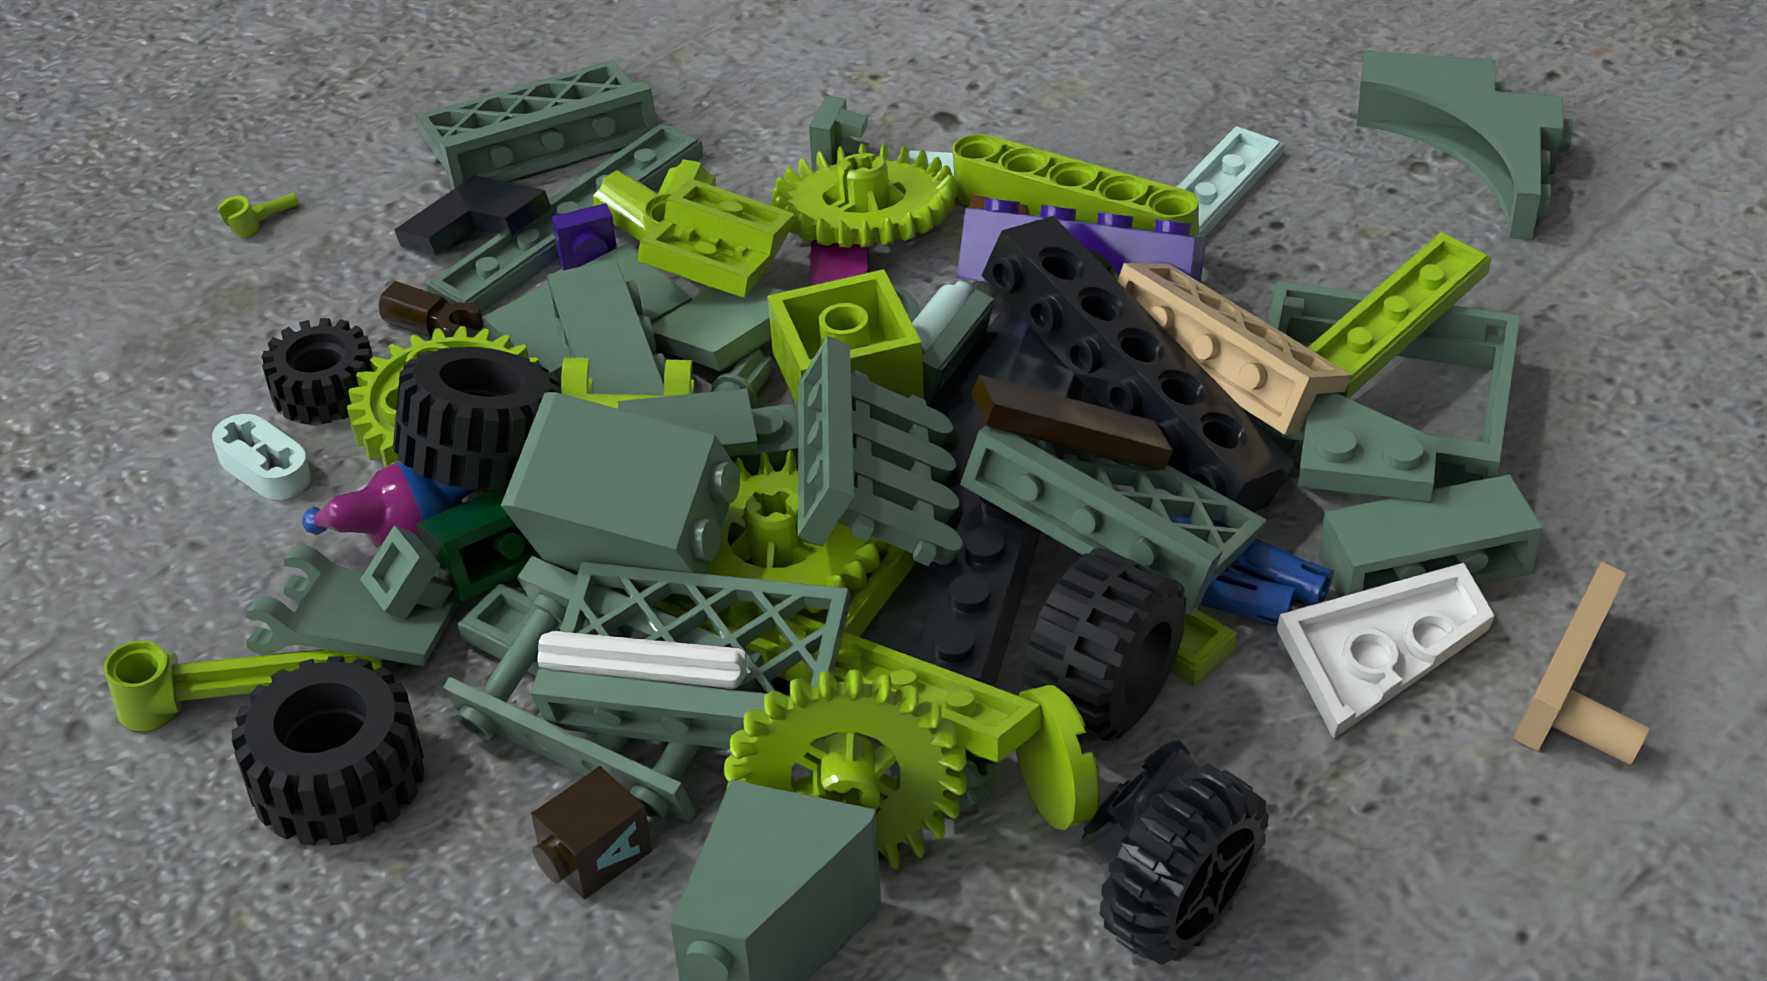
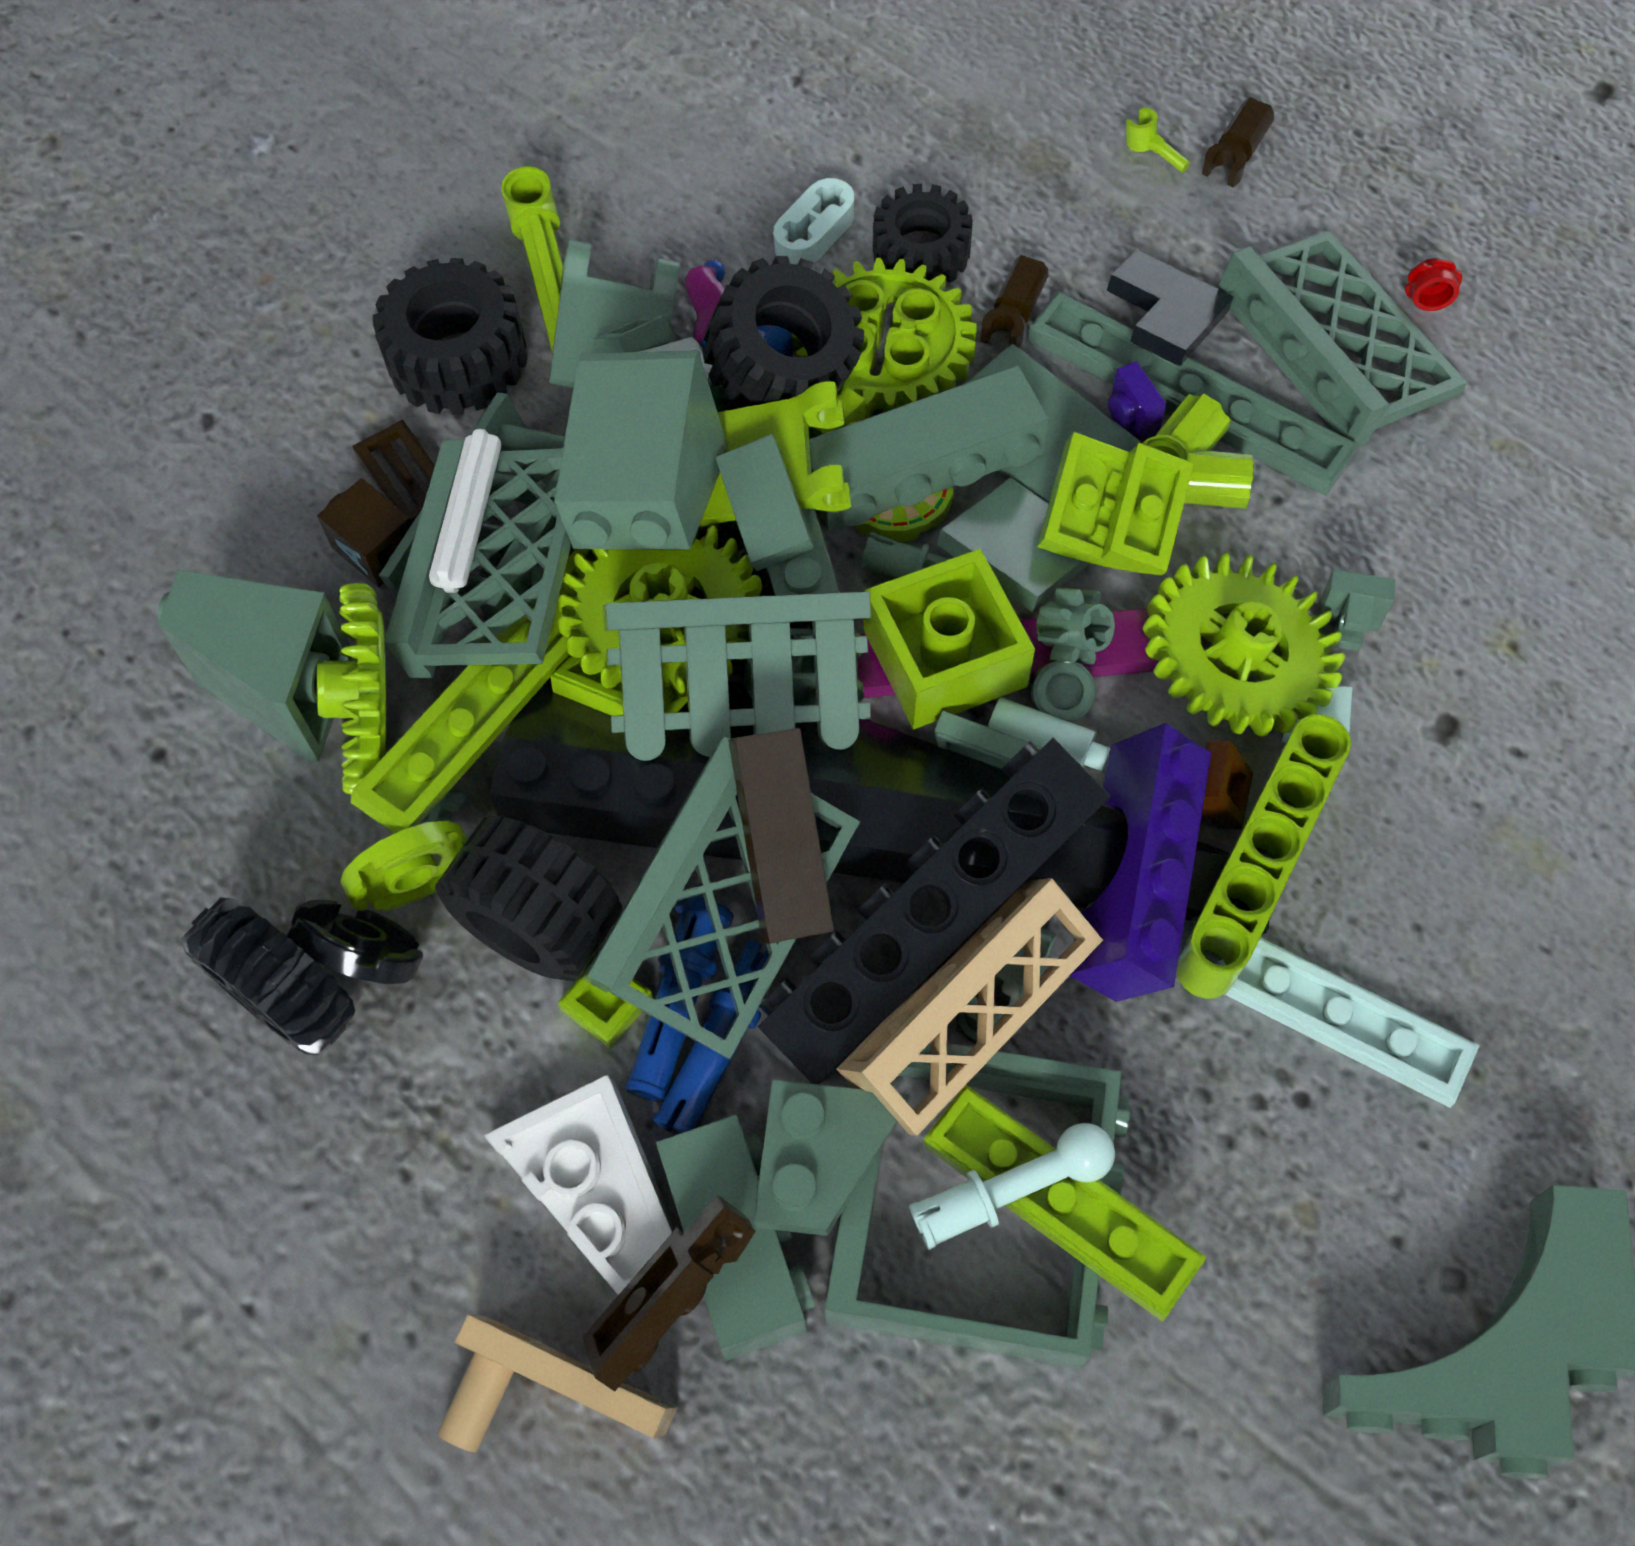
camera: 85 degrees right, 20 degrees up
(283, 156) = (1240, 139): none -> dark brown bar
(501, 63) = (1433, 284): none -> red plate
(508, 829) = (382, 442): none -> dark brown tile
(836, 263) = (1075, 625): none -> sand green gear
(1406, 341) = (1081, 1153): none -> light aqua pin
(1506, 550) = (663, 1290): none -> dark brown hinge

